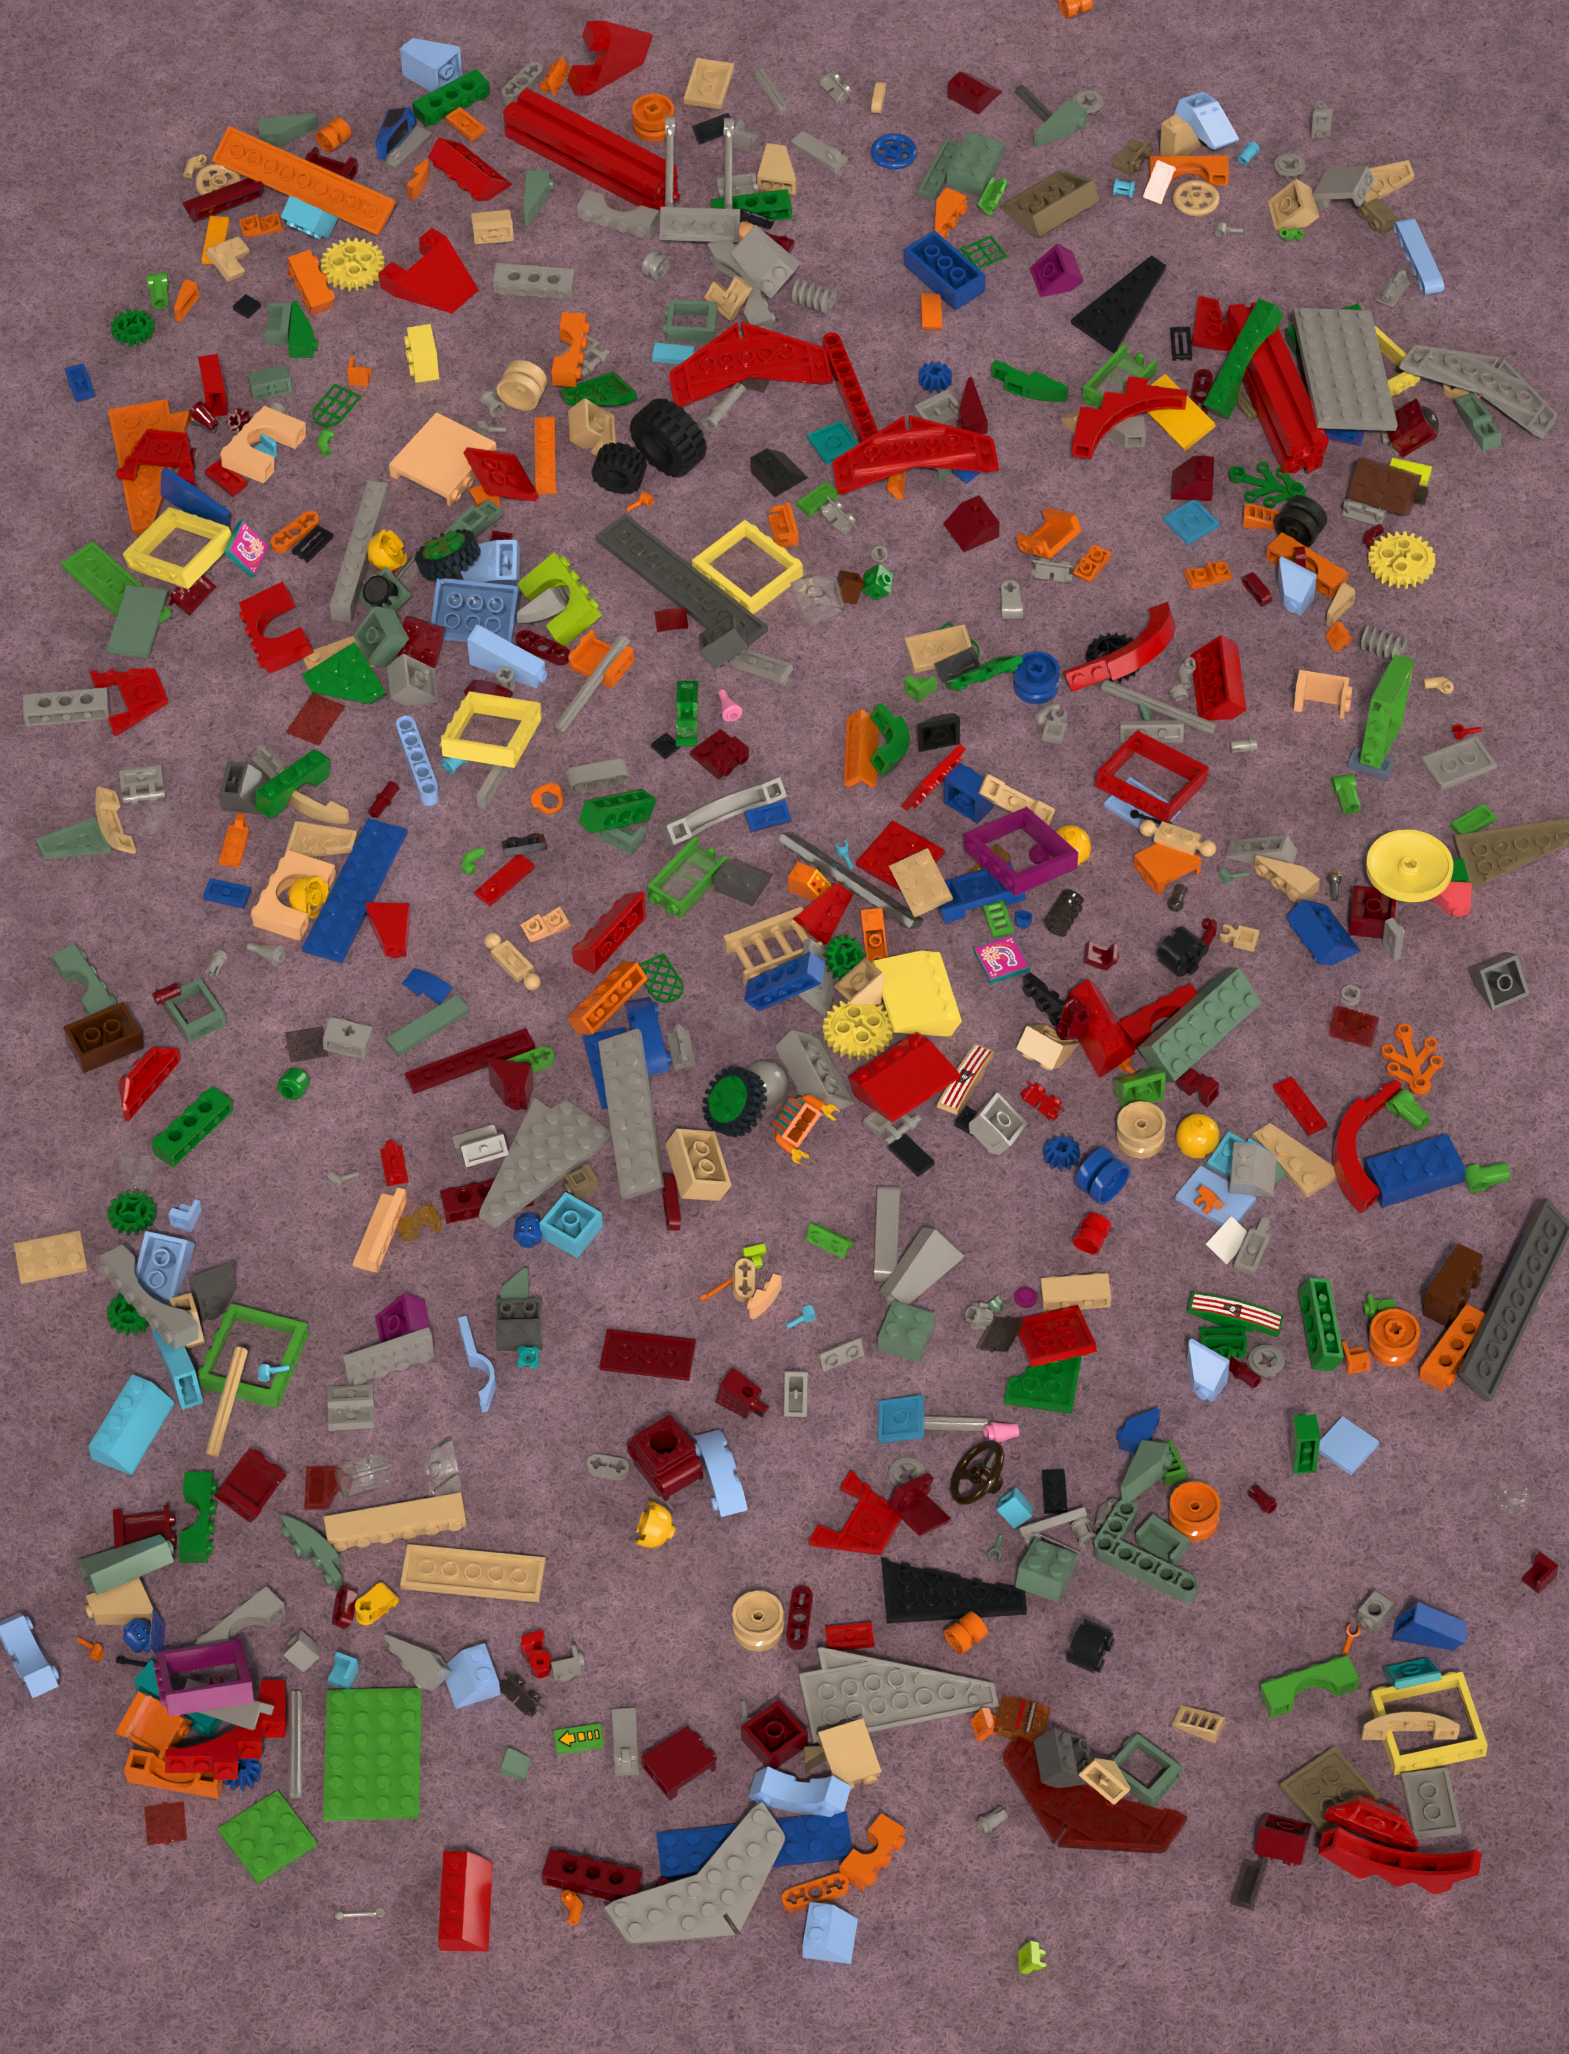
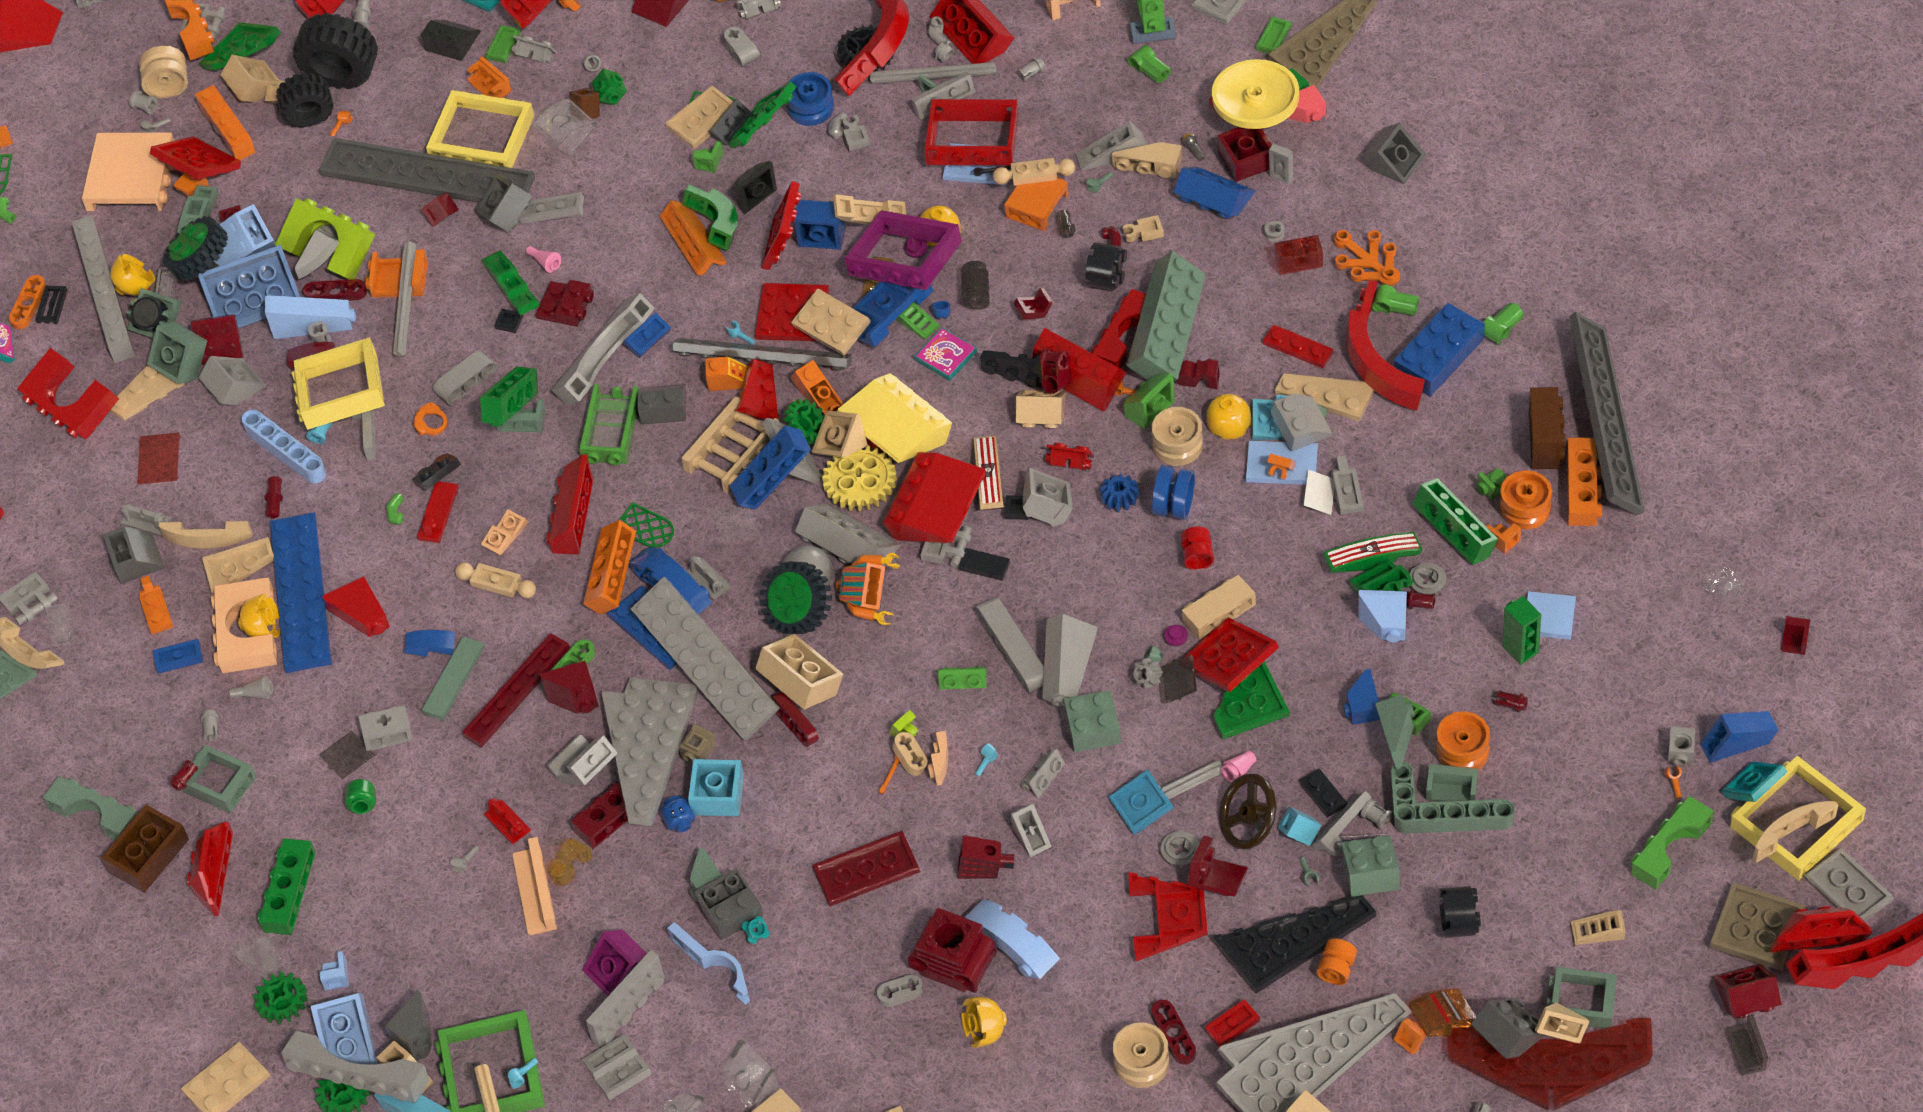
camera: 25 degrees left, 0 degrees up
(275, 794) = (169, 539): green arch -> none
(345, 677) = (165, 405): green plate -> none
(421, 353) = (49, 88): light yellow brick -> none
(1104, 1512) = (1381, 786): light grey arm -> none

